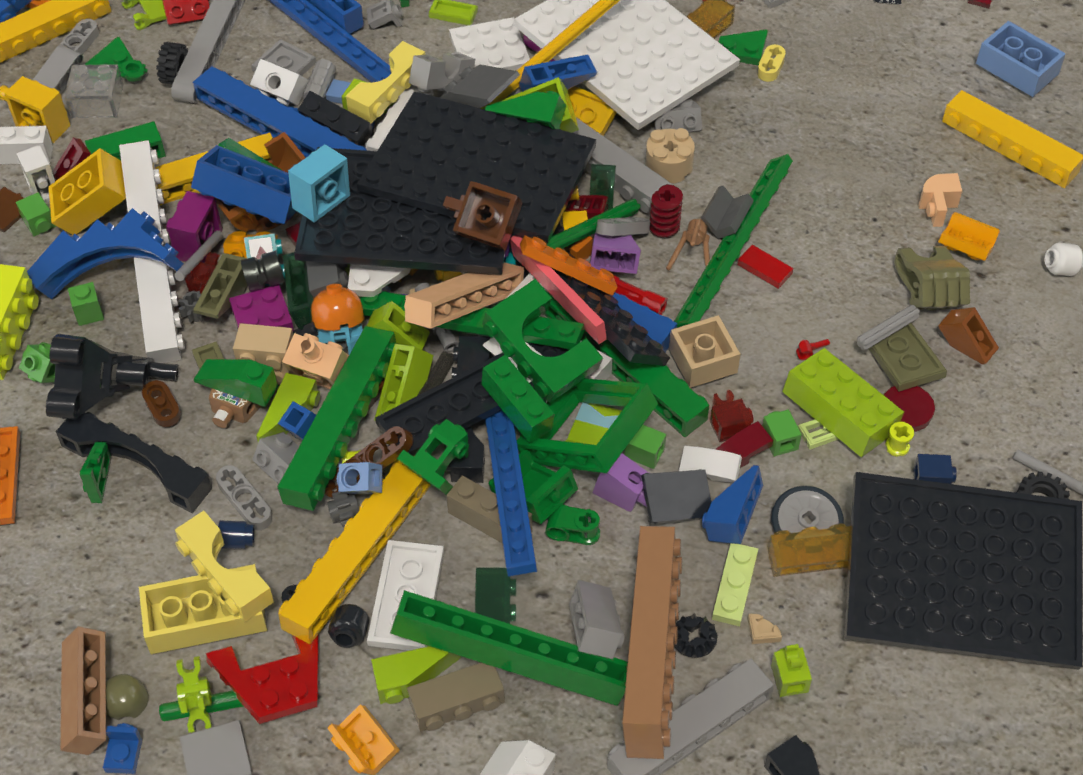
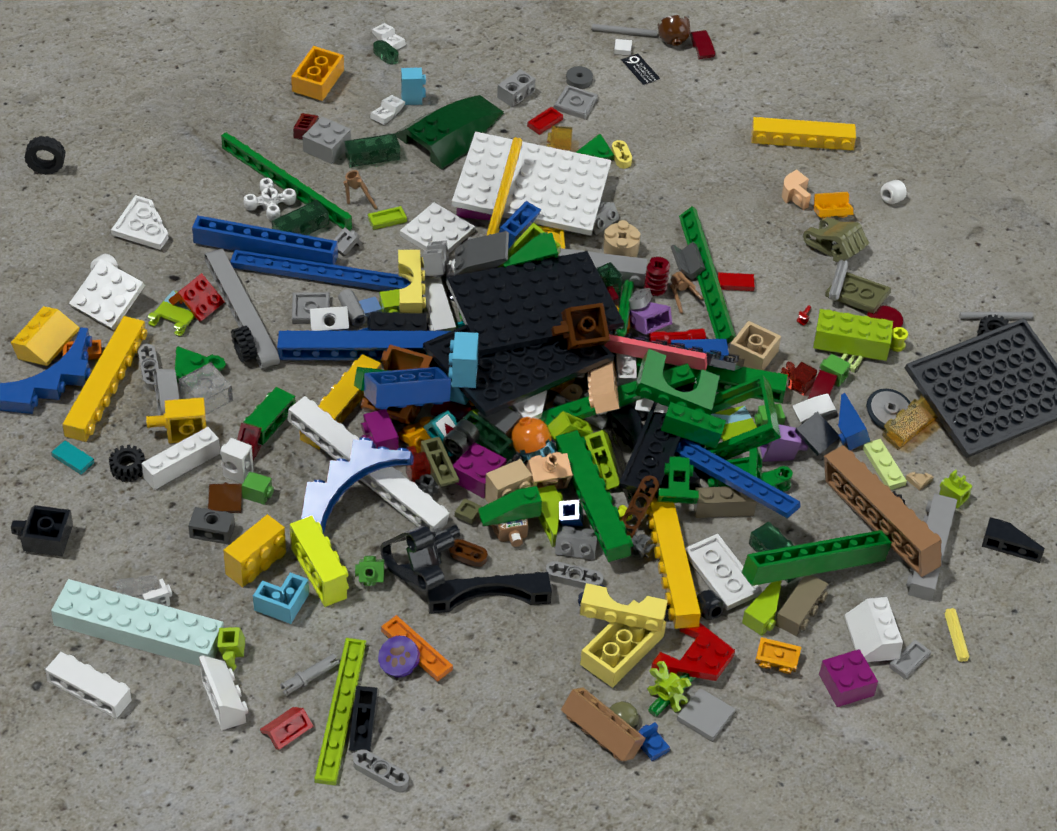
camera: 40 degrees left, 5 degrees down
(85, 303) = (356, 522): bright green brick -> none
(87, 192) = (288, 452): yellow brick -> none
(95, 472) = (479, 613): green wing -> none
(197, 257) = (417, 462): light grey bar -> none
(369, 481) = (652, 513): medium blue brick -> none
(561, 261) = (639, 333): orange plate -> none
(595, 619) = (842, 519): light grey brick -> none
(934, 468) = (930, 345): dark blue brick -> none
(969, 334) = (881, 261): dark orange slope -> none
(1020, 58) = (766, 81): medium blue brick -> none

